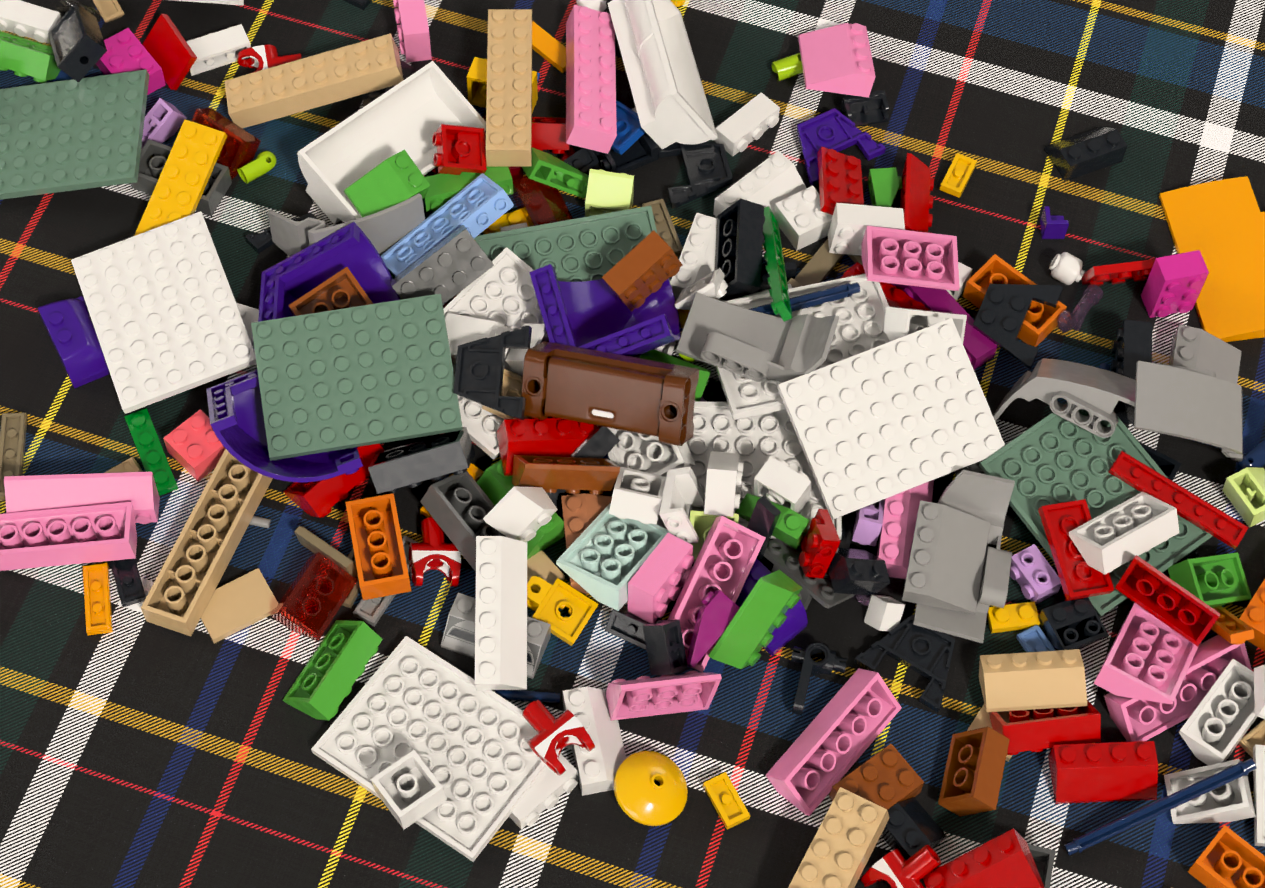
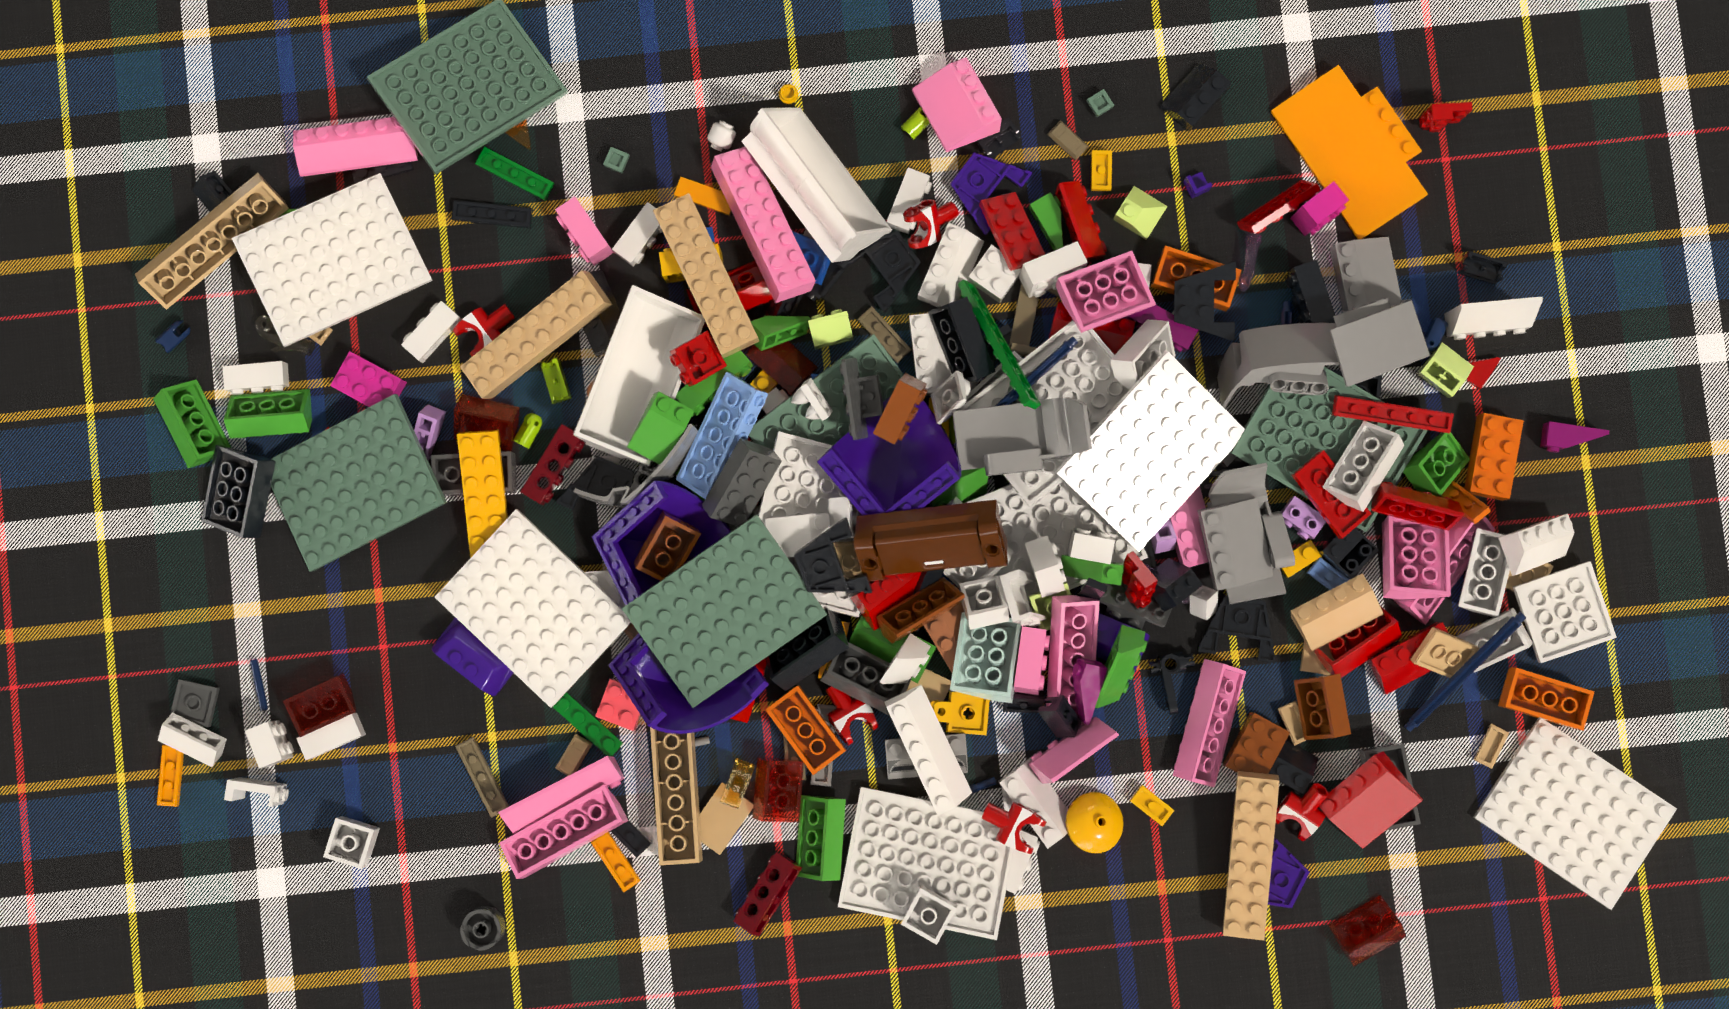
camera: 15 degrees left, 25 degrees up
(77, 42) = (319, 392): black brick -> none
(169, 51) = (395, 356): red tile -> none
(241, 699) = (777, 890): none -> dark red brick
(251, 204) = (542, 470): none -> dark red brick
(273, 571) = (737, 783): none -> clear yellow slope
(311, 130) = (556, 381): none -> lime hinge
(316, 545) = (767, 749): dark tan tile -> none
(460, 50) = (638, 236): none -> white brick
(557, 226) = (810, 393): none -> white tile
(604, 246) = (863, 397): none -> dark grey bracket
(759, 143) = (929, 220): none -> red connector
(932, 775) = (1292, 721): none -> tan tile
(936, 140) = (1067, 140): none -> dark tan tile
(980, 226) = (1140, 212): none -> yellowish green slope
(984, 119) = (1100, 103): none -> sand green plate
(1066, 268) = (1224, 224): white head -> none
(1141, 772) = (1443, 652): none -> tan tile

